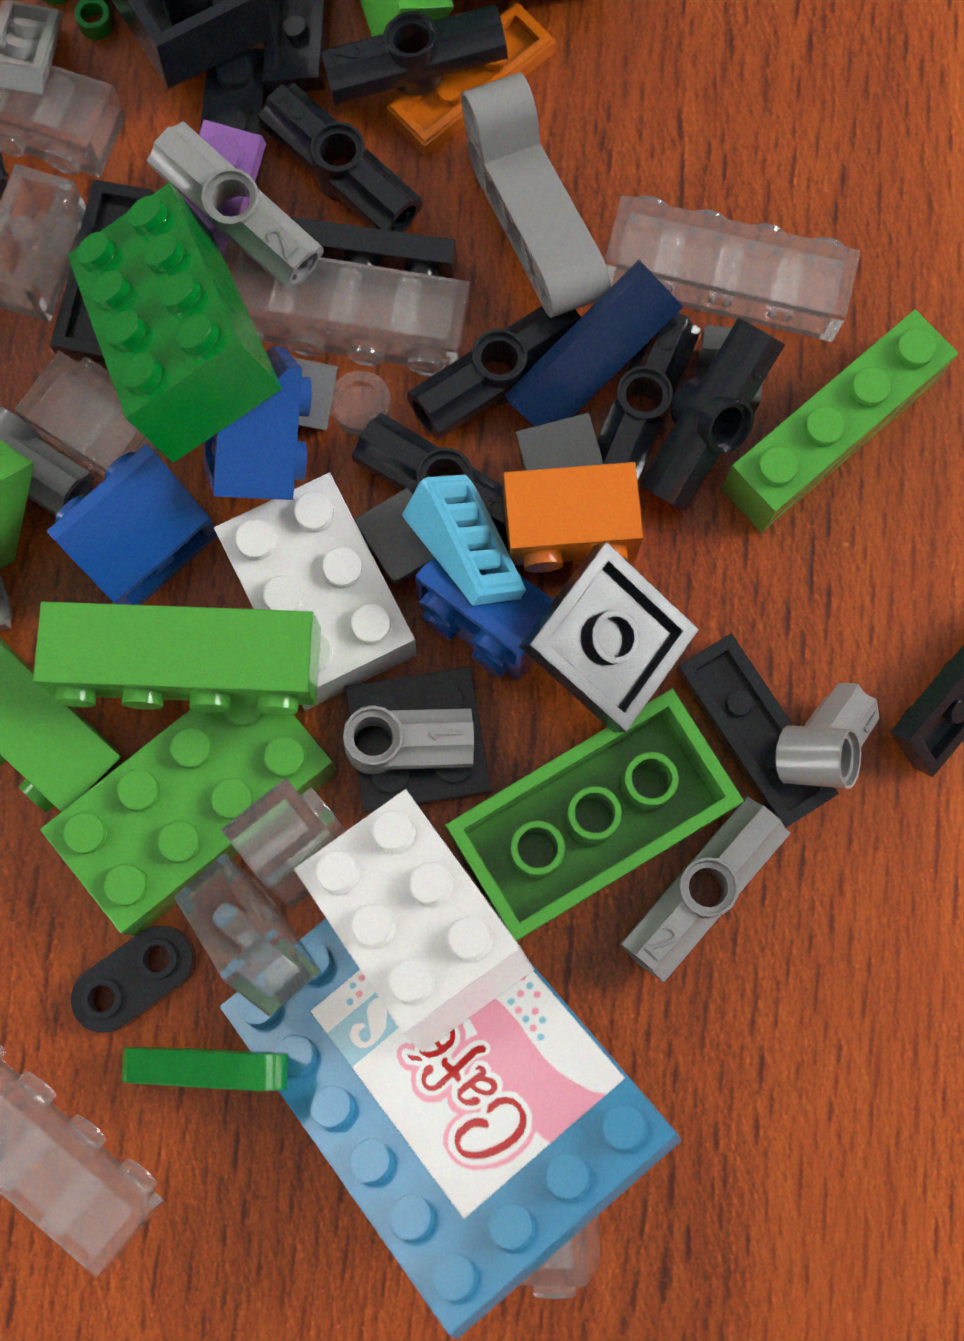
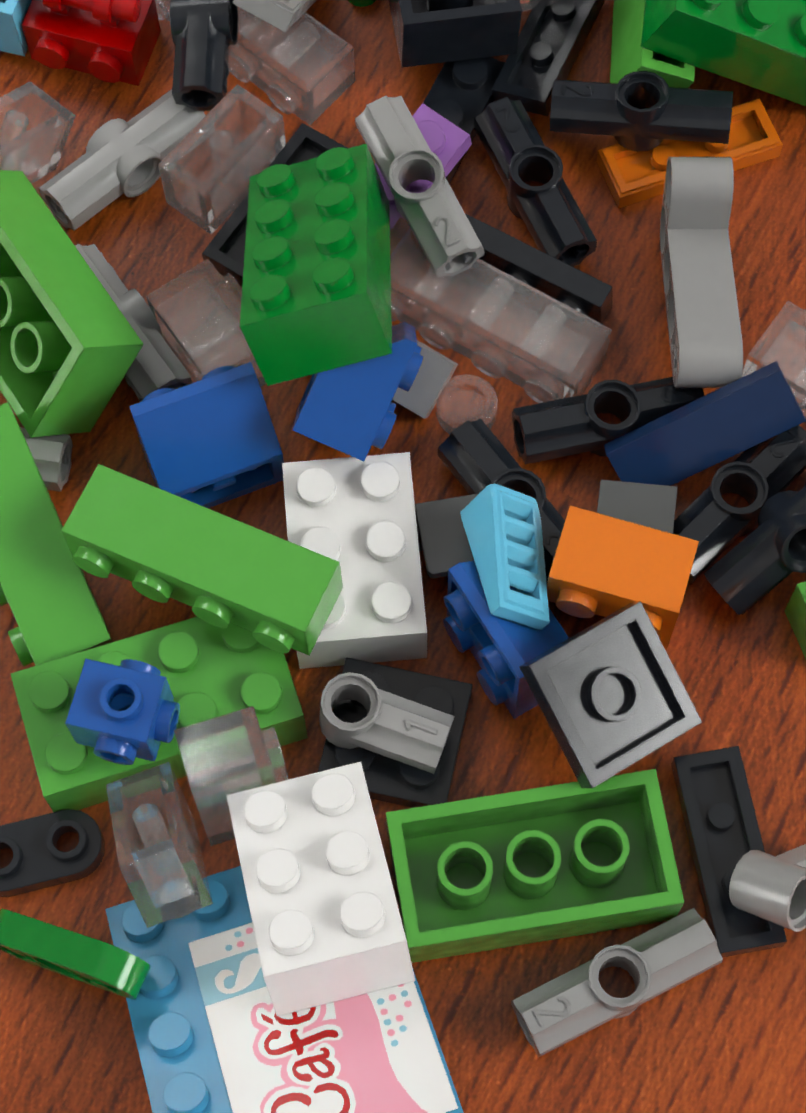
camera: 25 degrees right, 10 degrees down
(142, 825) = (122, 710): none -> blue brick

